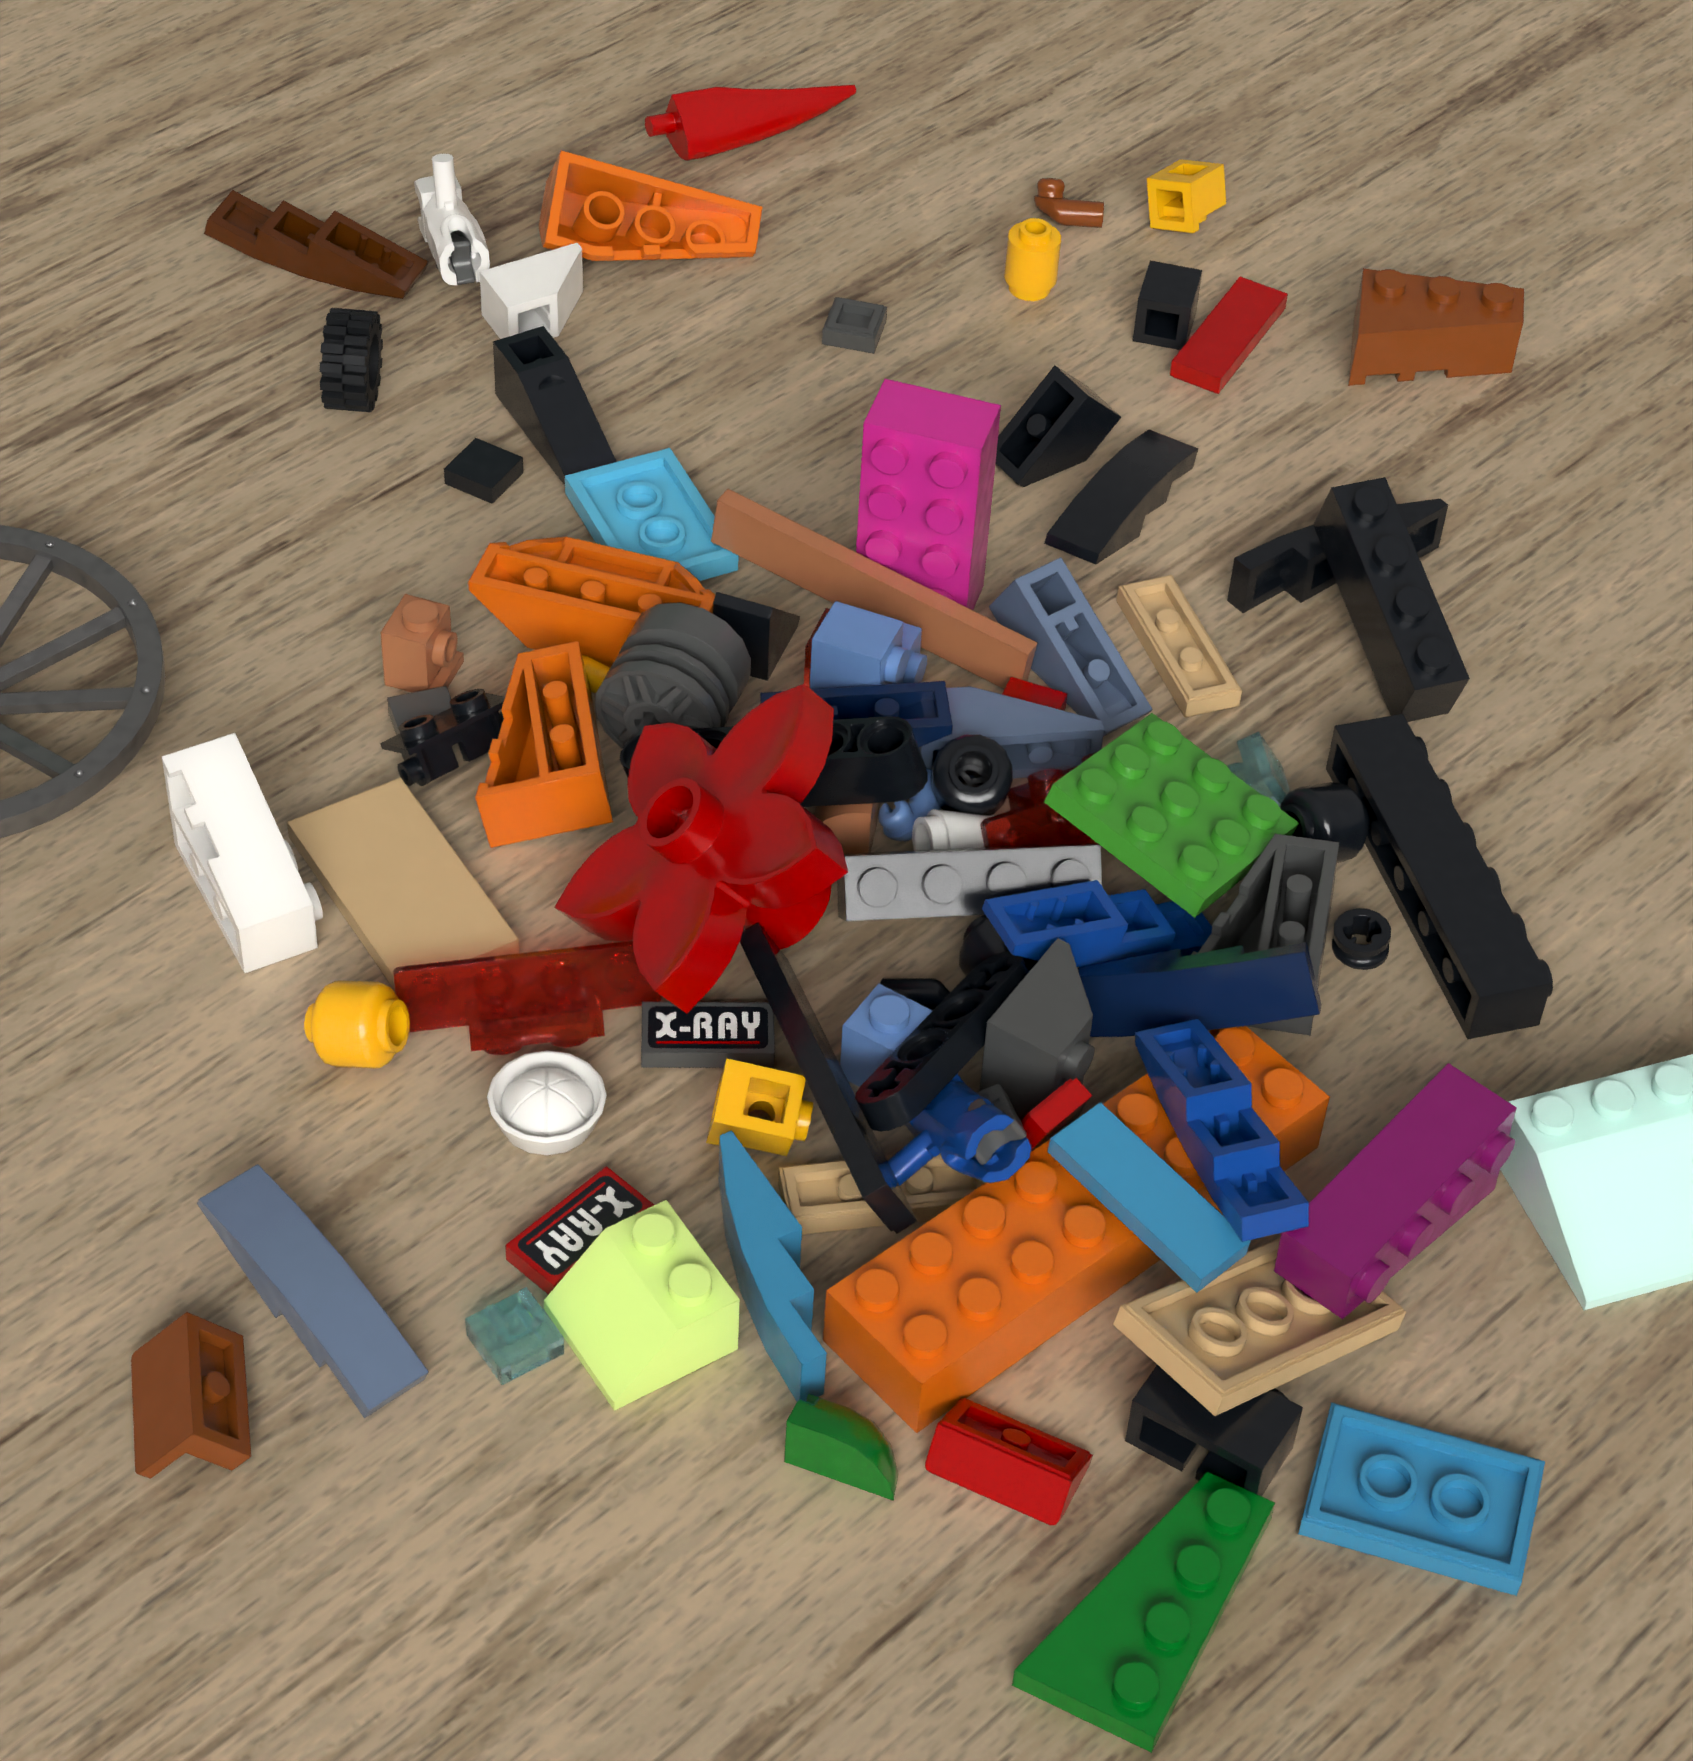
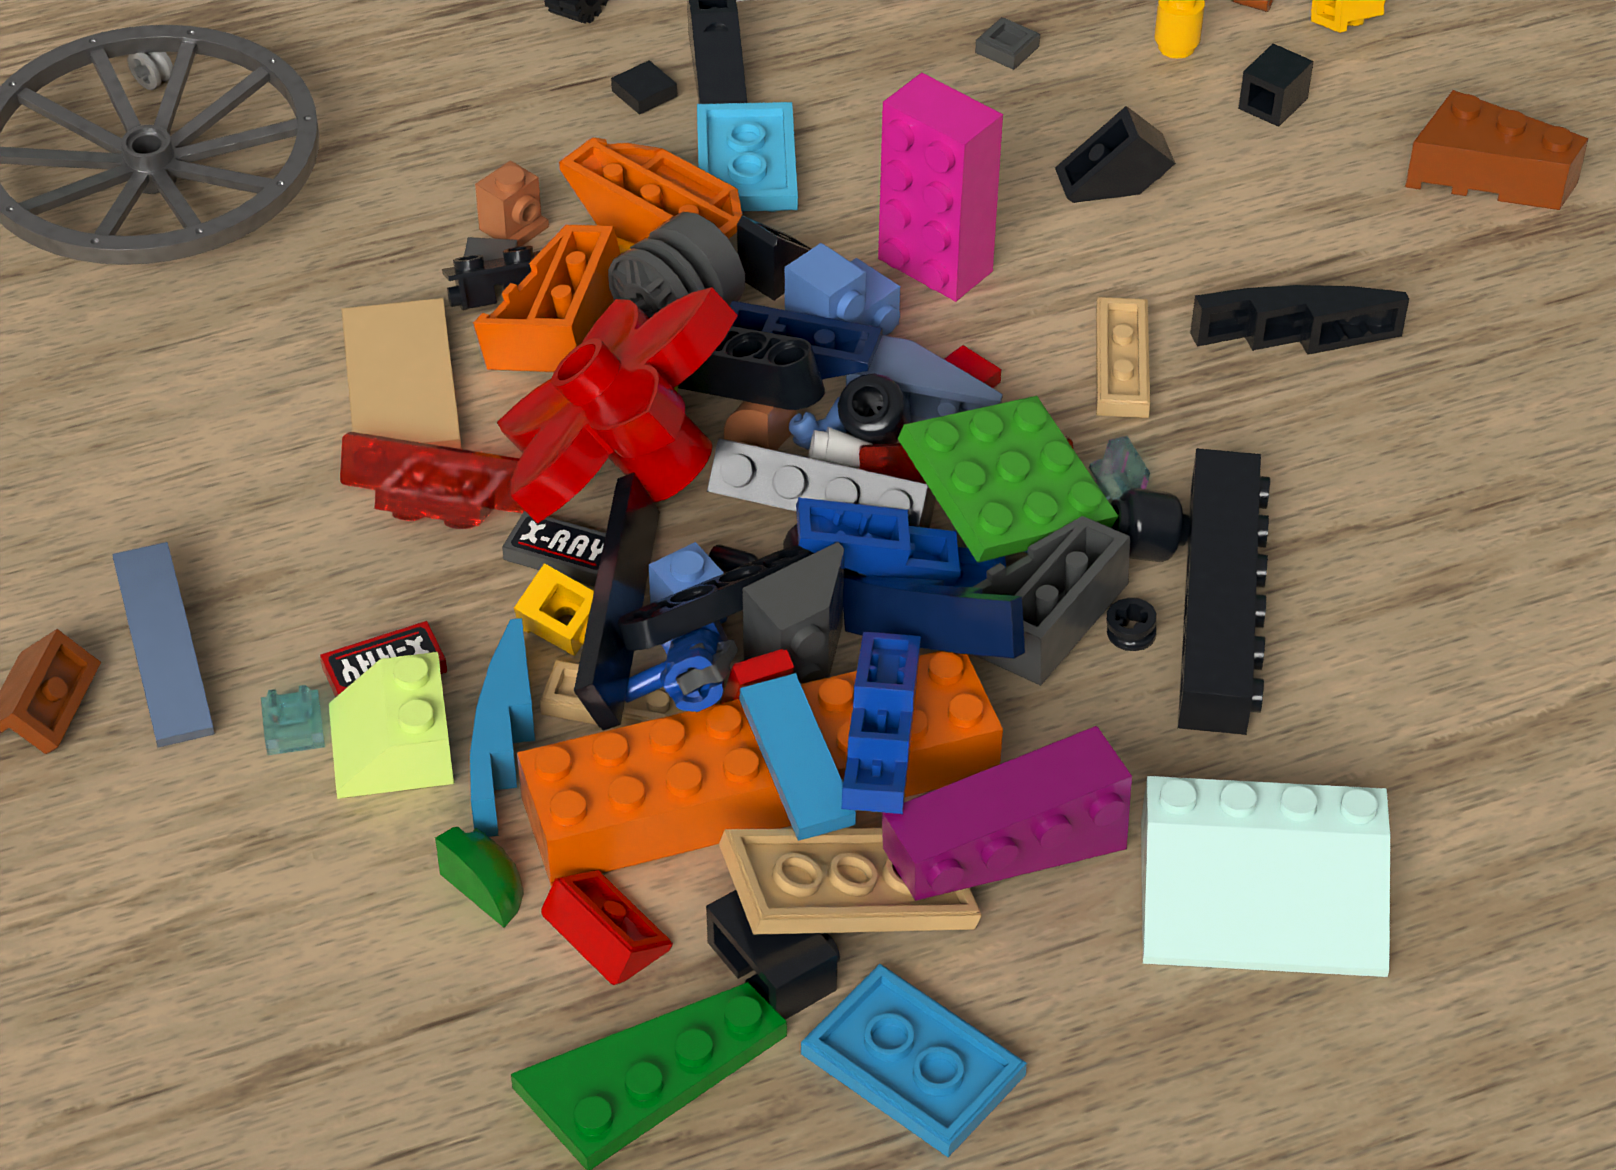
camera: 25 degrees right, 0 degrees up
(239, 854) = (286, 320): white wedge -> none
(357, 1024) = (303, 466): yellow head -> none
(547, 1101) = (411, 562): white hat -> none
(858, 581) = (881, 248): nougat tile -> none
(1071, 645) = (1021, 330): sand blue slope -> none
(1119, 497) = (1133, 228): black slope -> none
(1228, 335) = (1320, 121): red tile -> none
(1390, 600) = (1303, 362): black brick -> none

